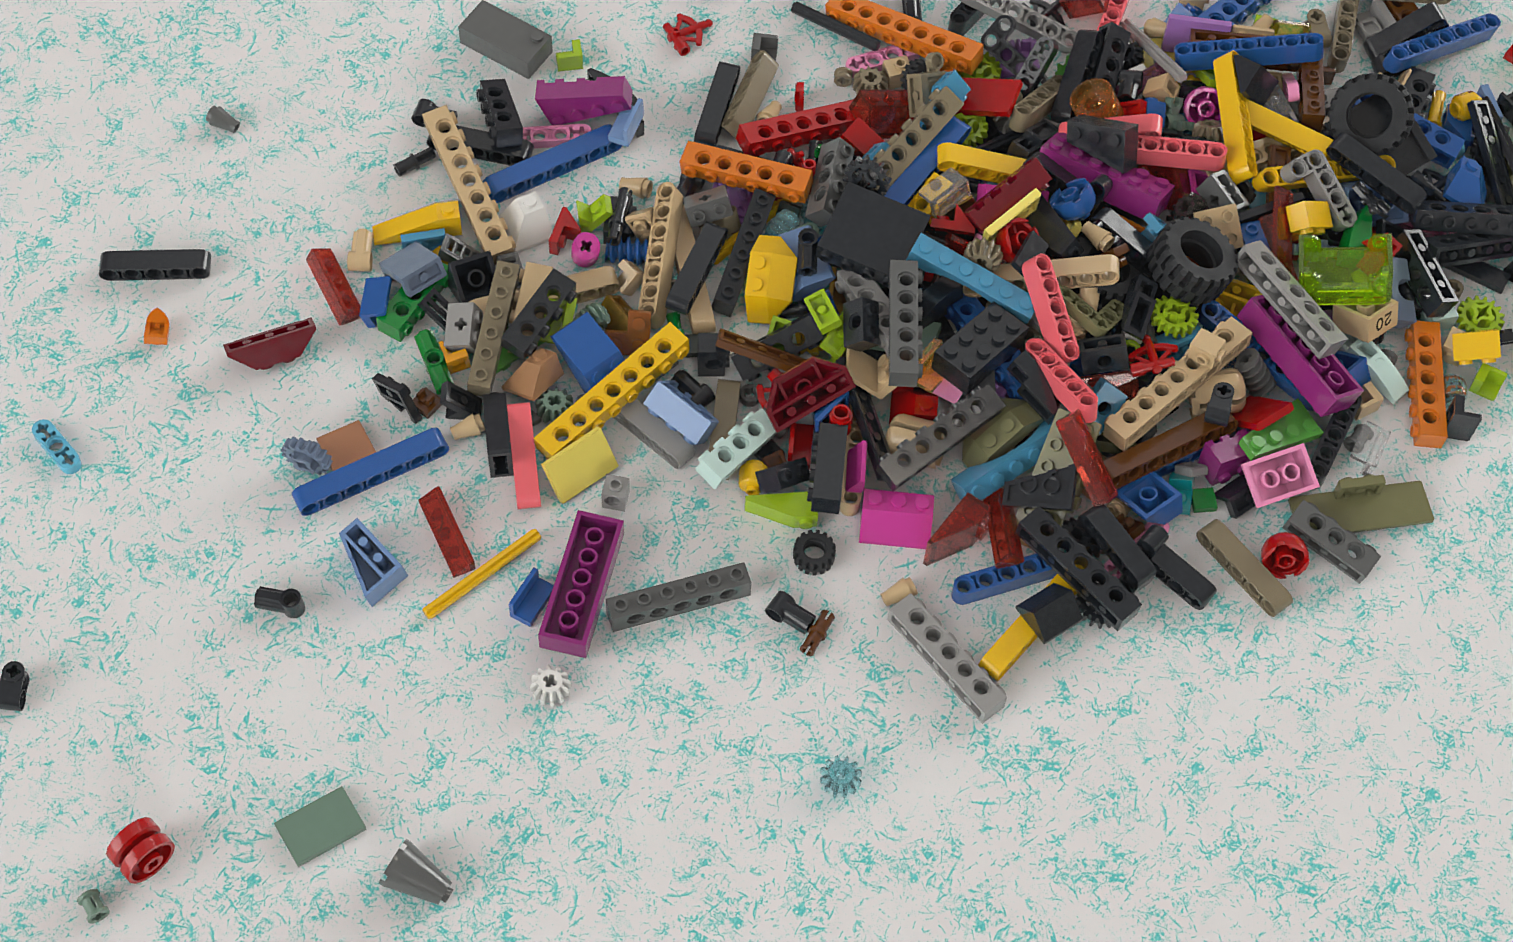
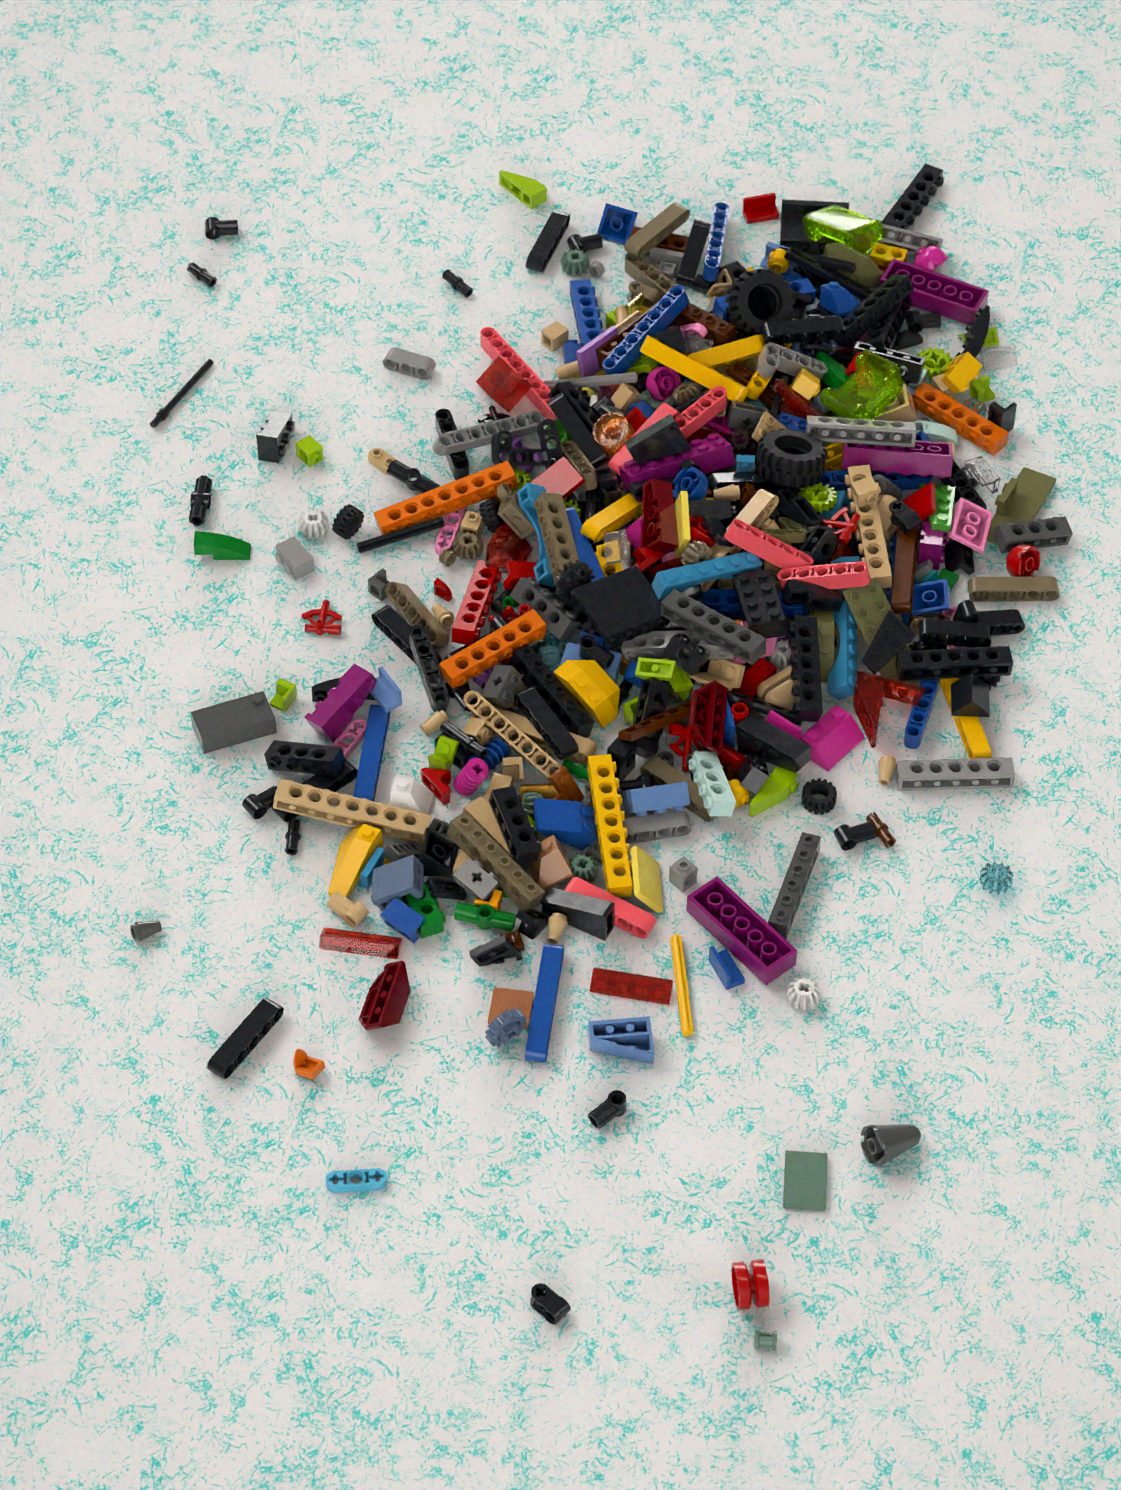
camera: 50 degrees left, 10 degrees down
(686, 130) = (428, 660): none -> black beam
(1086, 458) = (892, 601): clear red slope -> none

